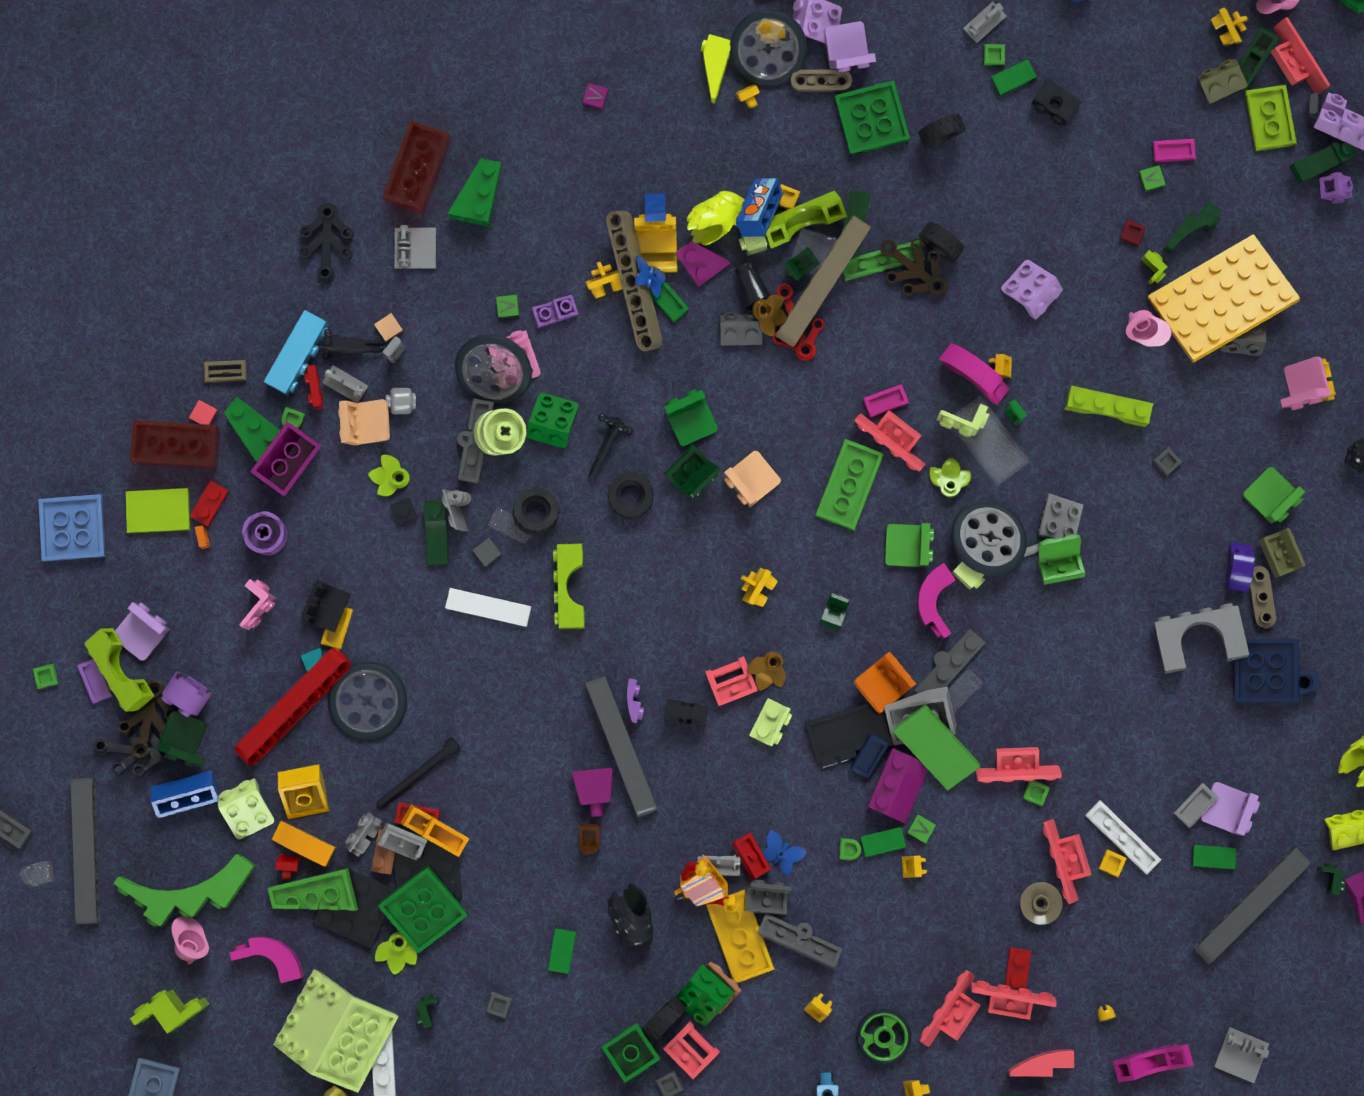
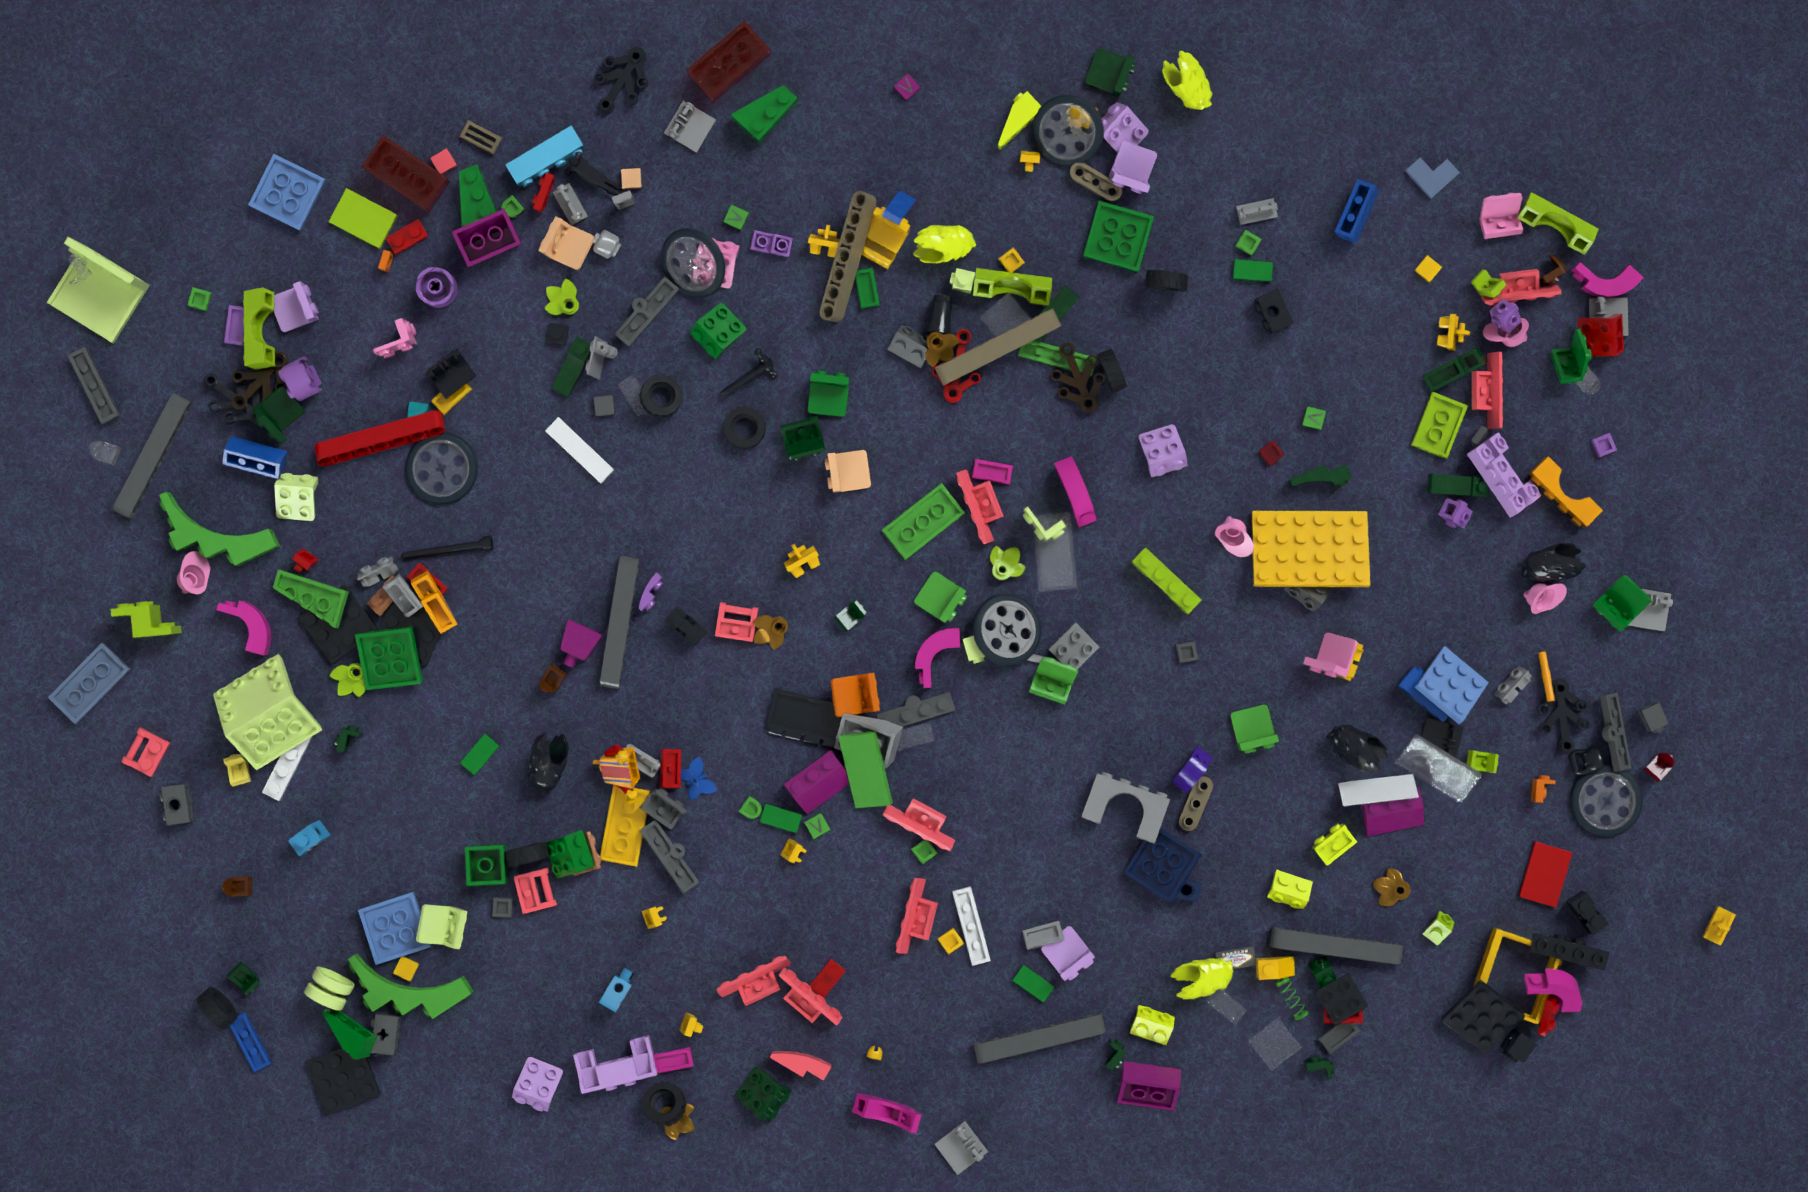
camera: 30 degrees right, 5 degrees up
(303, 791) = (349, 510): yellow slope -> none
(304, 843) = (326, 552): light orange slope -> none
(498, 1005) = (406, 767): dark grey tile -> none
(500, 432) = (677, 324): yellowish green wheel -> none
(568, 559) = (664, 450): lime arch -> none
(649, 276) = (861, 261): blue piece -> none
(700, 262) = (910, 273): magenta wing -> none
(759, 207) = (982, 256): brick -> none
(770, 723) = (748, 672): yellowish green bracket -> none
(801, 264) = (989, 322): dark green bracket -> none
(869, 755) = (810, 744): dark blue tile -> none
(890, 1018) = (674, 962): bright green wheel -> none
(1003, 365) = (1101, 499): yellow tile -> none
(1015, 412) = (1087, 542): green tile -> none
(1052, 903) = (868, 946): dark tan dish -> none
(1154, 262) = (1273, 487): lime bracket -> none
(1173, 150) = (1345, 406): dark pink tile -> none
(1222, 80) = (1418, 372): olive bracket -> none
(1282, 552) = (1232, 778): olive bracket -> none

